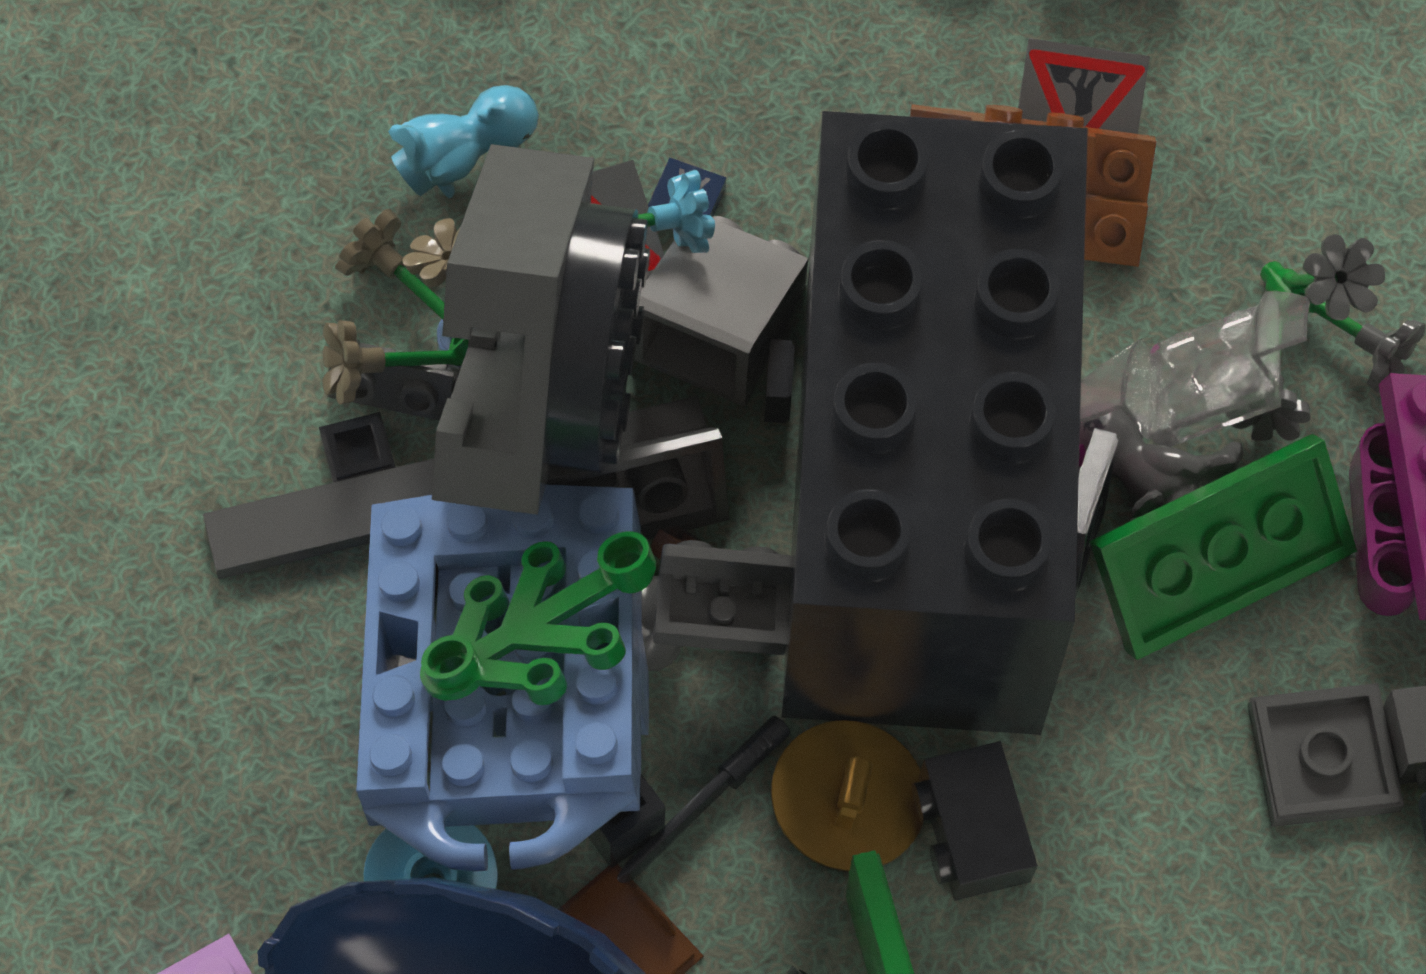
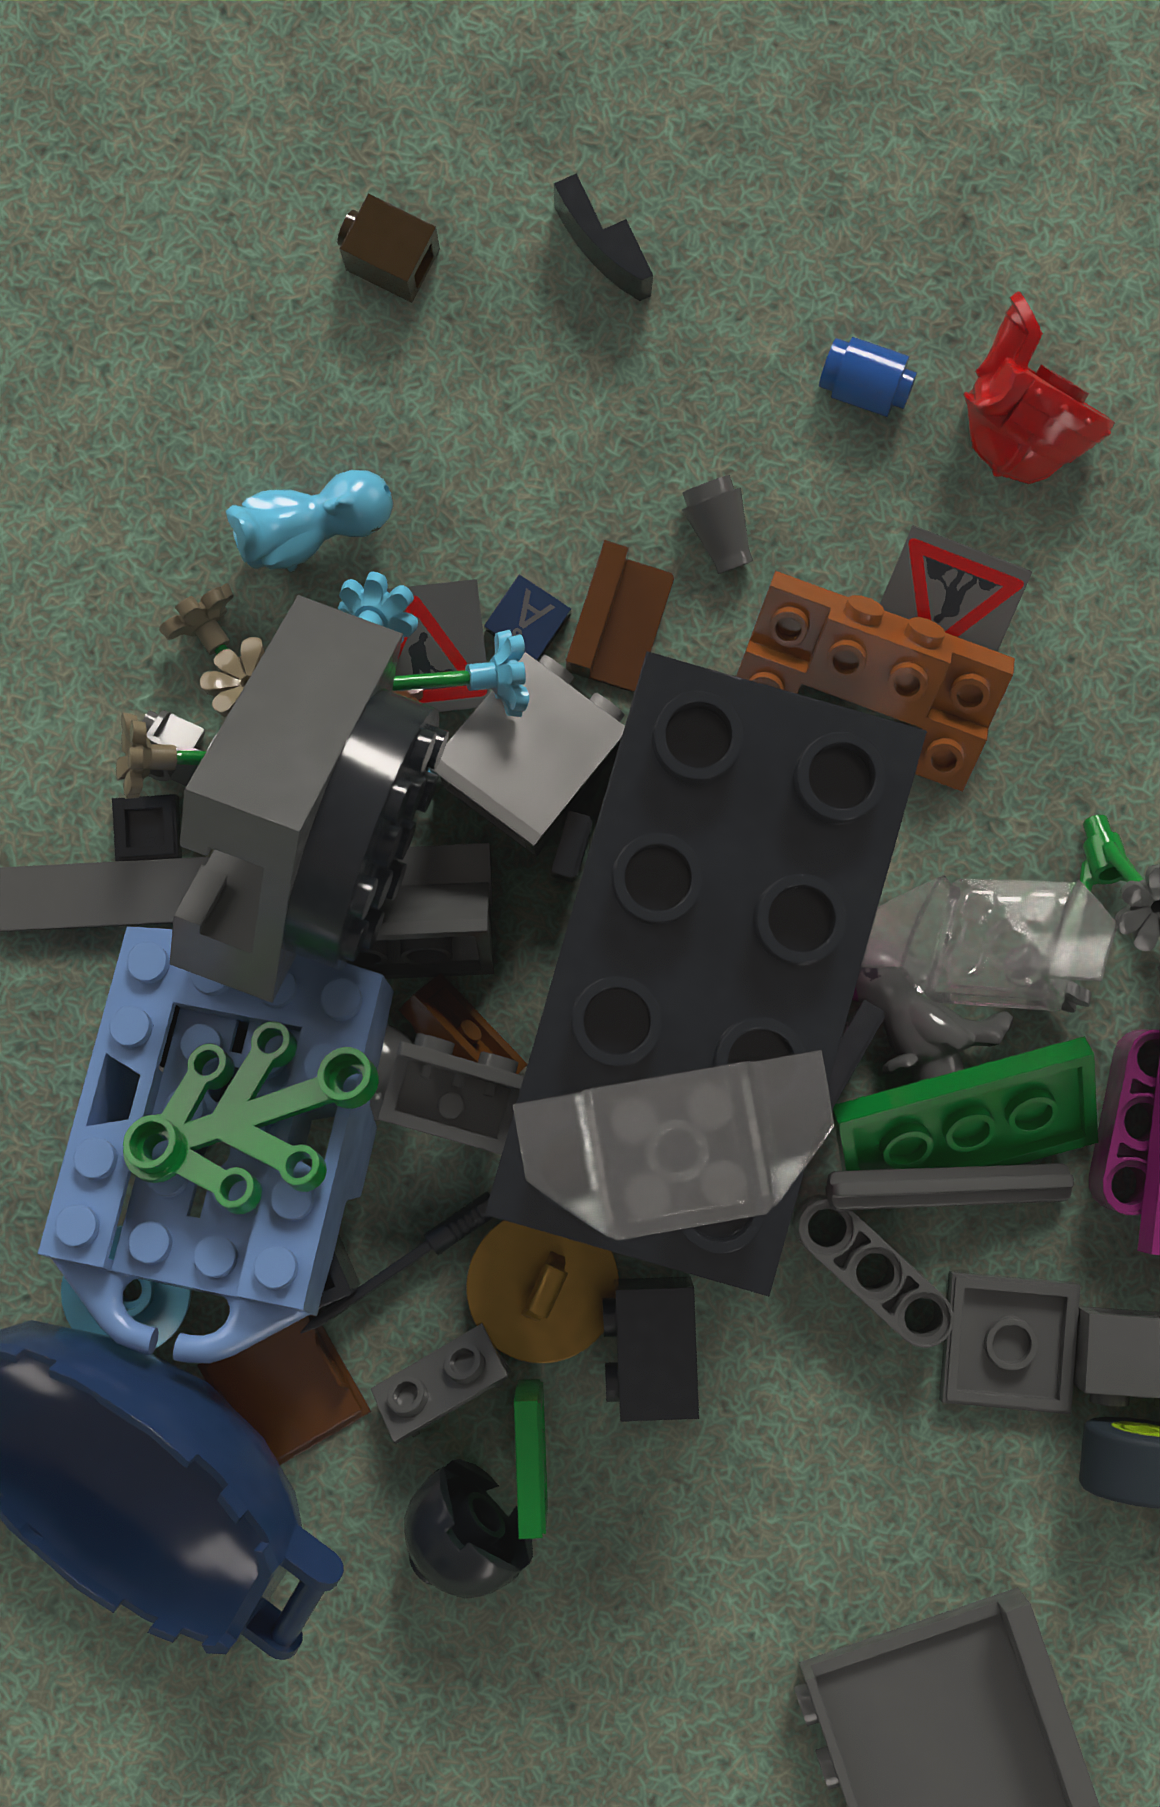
camera: 15 degrees right, 20 degrees up
(774, 179) = (618, 619): none -> reddish brown panel
(785, 887) = (440, 1383): none -> dark grey hinge
(846, 75) = (719, 521): none -> dark grey cone
(966, 481) = (678, 1144): none -> clear piece
(1156, 677) = (896, 1290): none -> dark grey beam
(1223, 609) = (948, 1186): none -> dark grey axle

